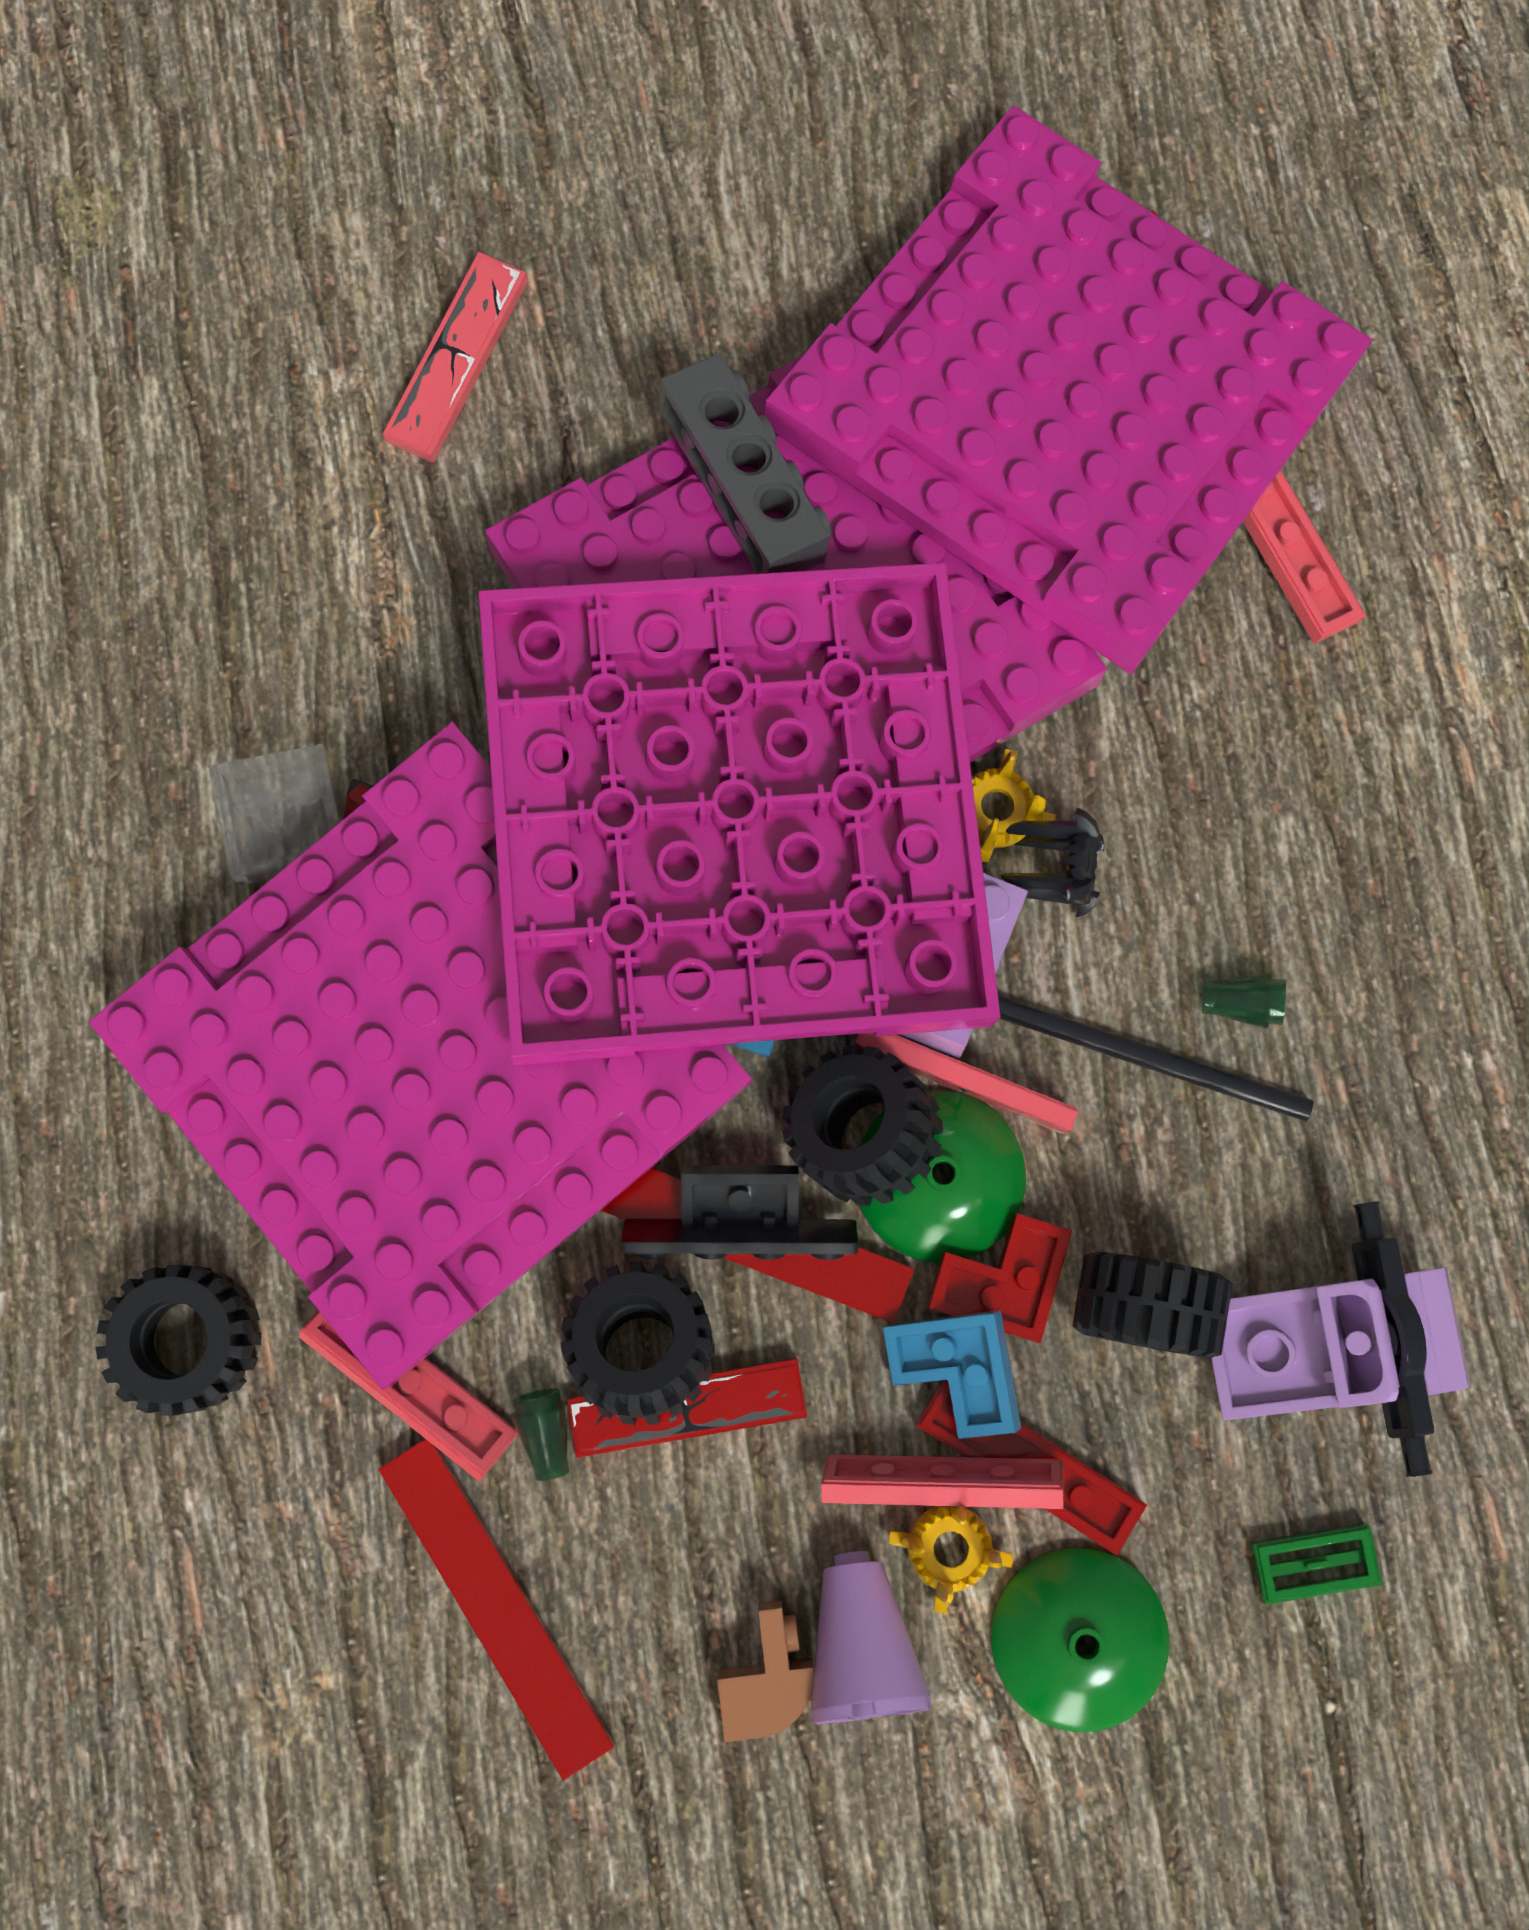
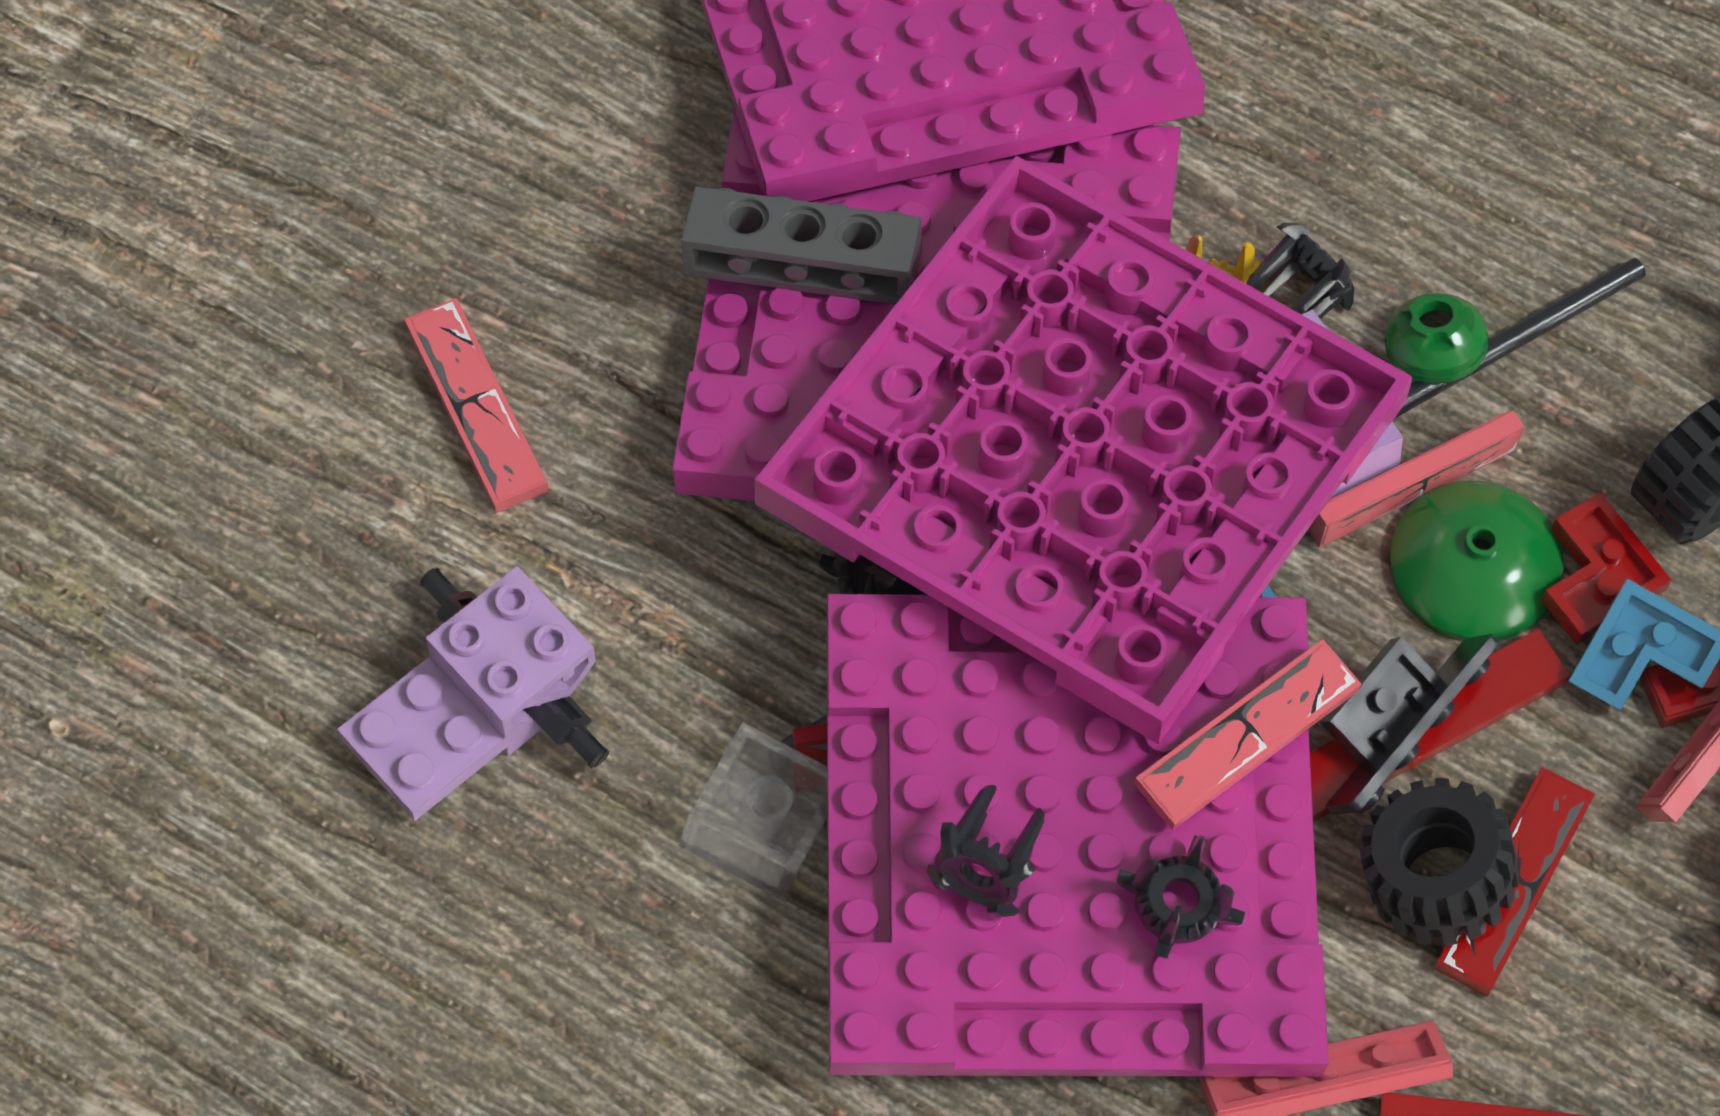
camera: 55 degrees left, 15 degrees down
(223, 540) = (488, 687): none -> lavender piece
(288, 990) = (961, 847): none -> black piece
(438, 1184) = (1173, 926): none -> black piece
(543, 1430) = (1449, 999): clear green cone -> none
(588, 1125) = (1247, 734): none -> coral tile
(829, 1101) = (1366, 537): black tyre -> none
(1095, 1022) = (1439, 352): none -> green piece
(1246, 999) = (1518, 239): clear green cone -> none

